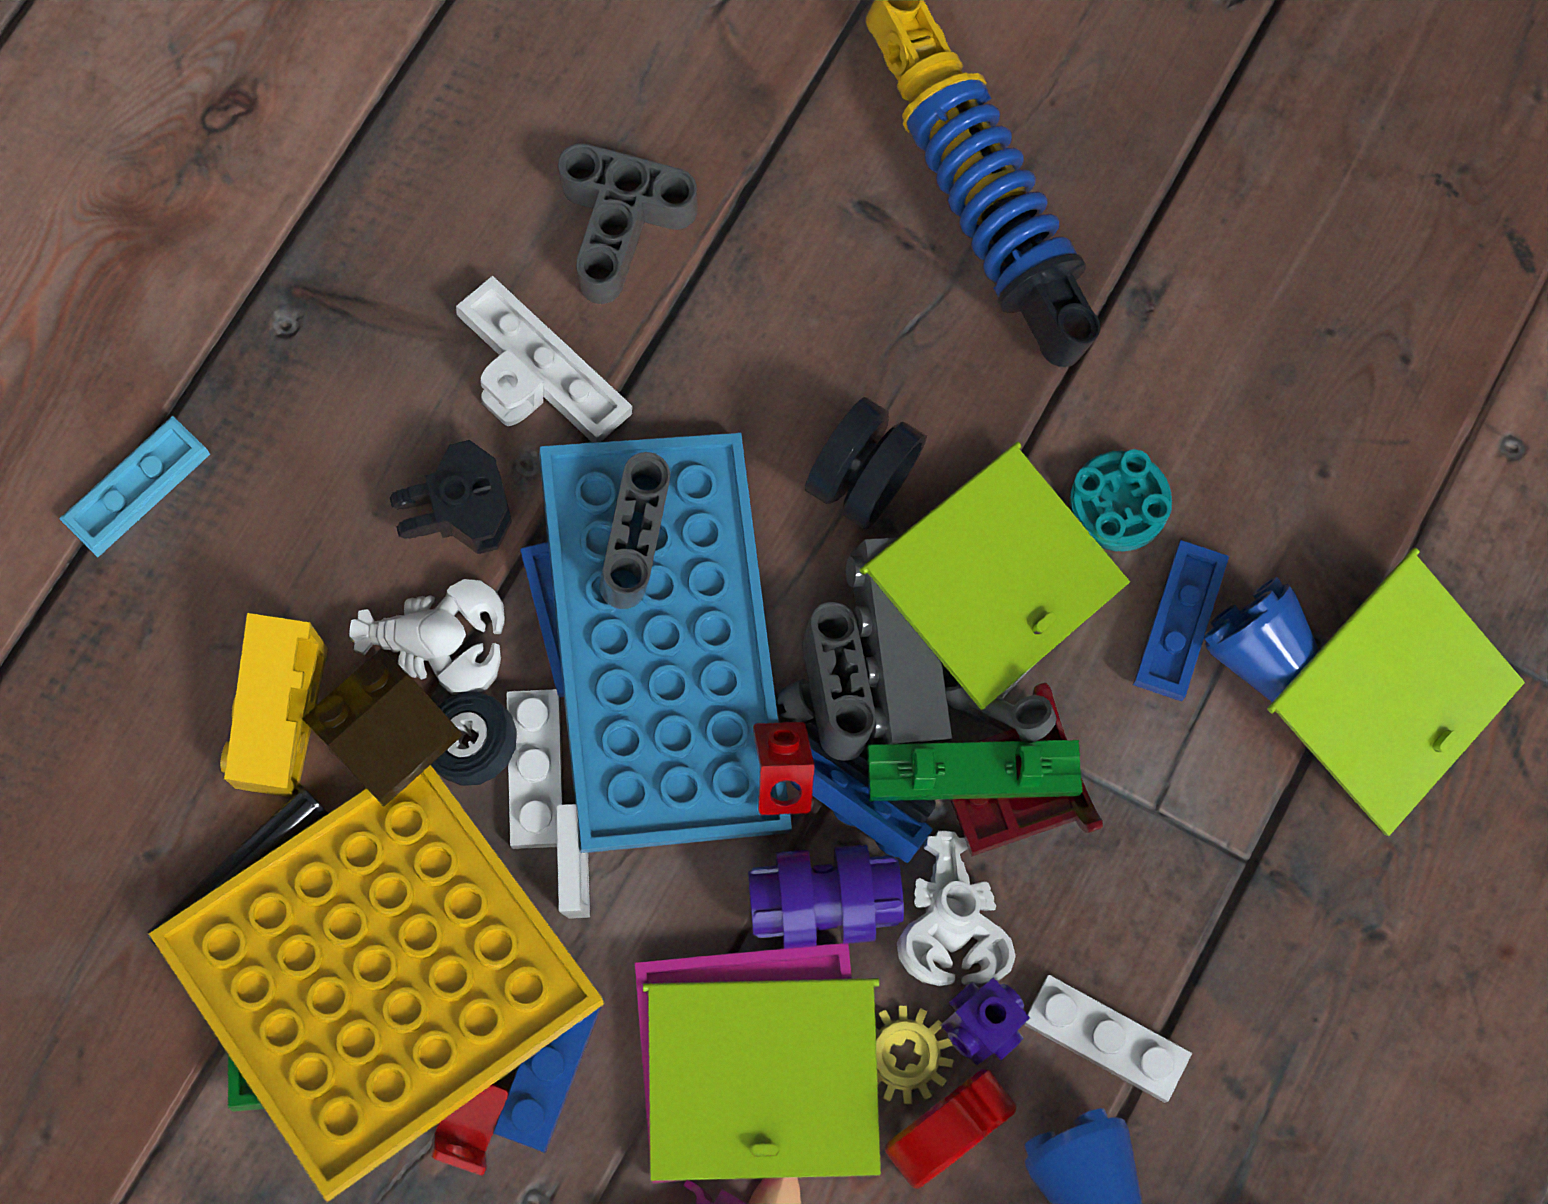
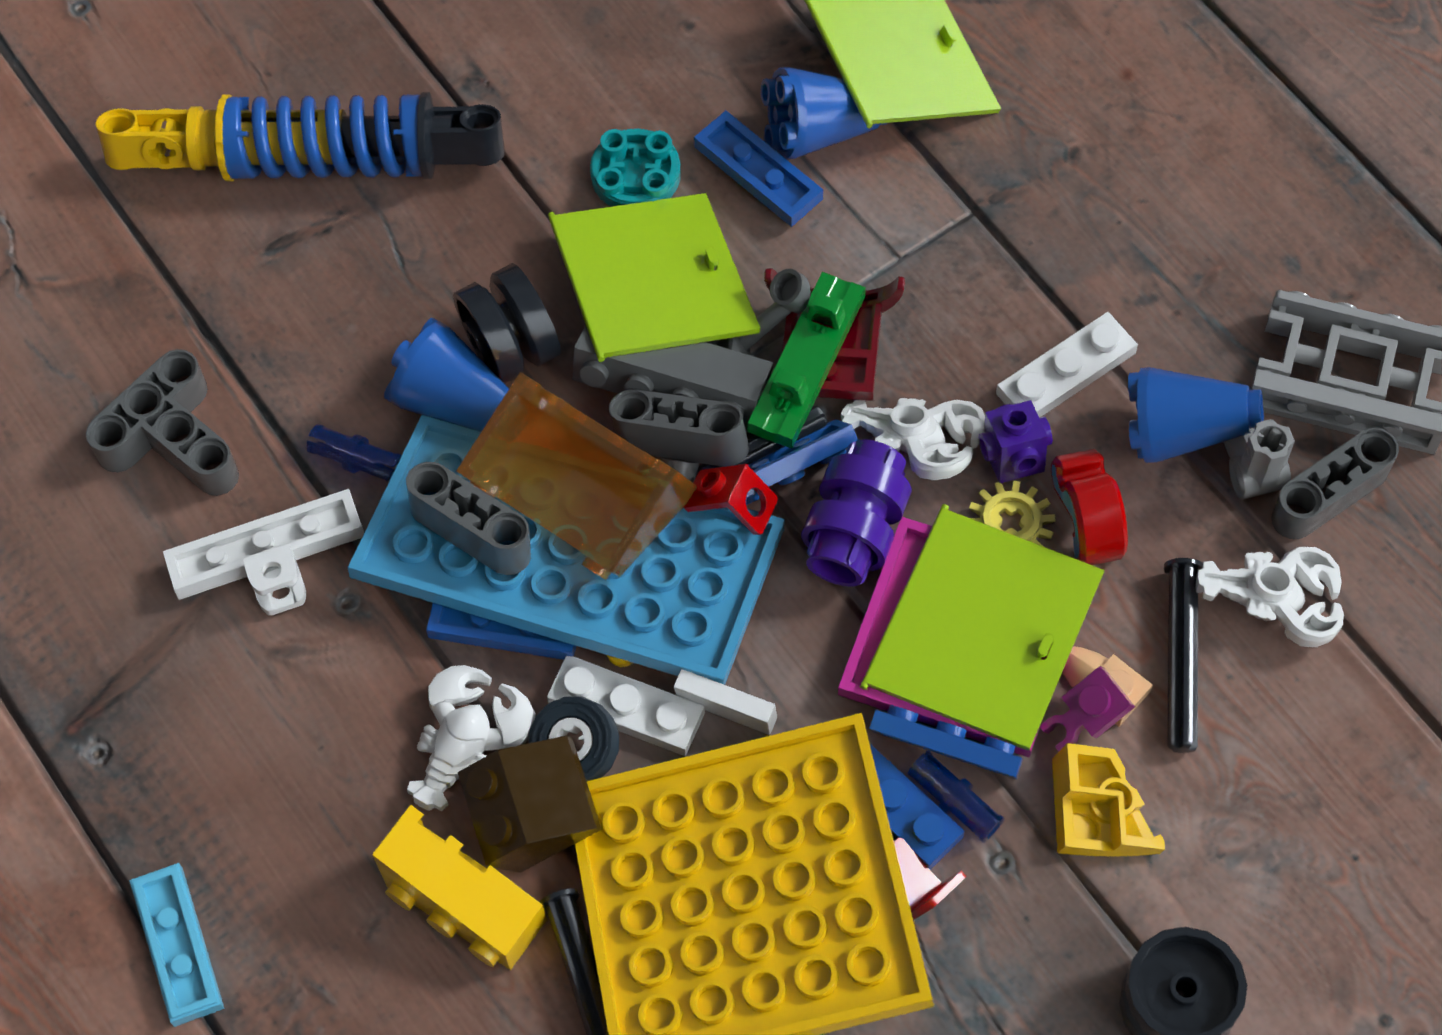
camera: 60 degrees left, 10 degrees down
(457, 500) = (356, 656): black hinge -> none
(576, 1128) = (956, 796): none -> clear blue pin
(623, 1095) = (947, 741): none -> blue plate
(674, 390) = (353, 452): none -> clear blue pin
(730, 610) = (575, 477): none -> clear orange windscreen
(779, 442) = (444, 379): none -> blue cone

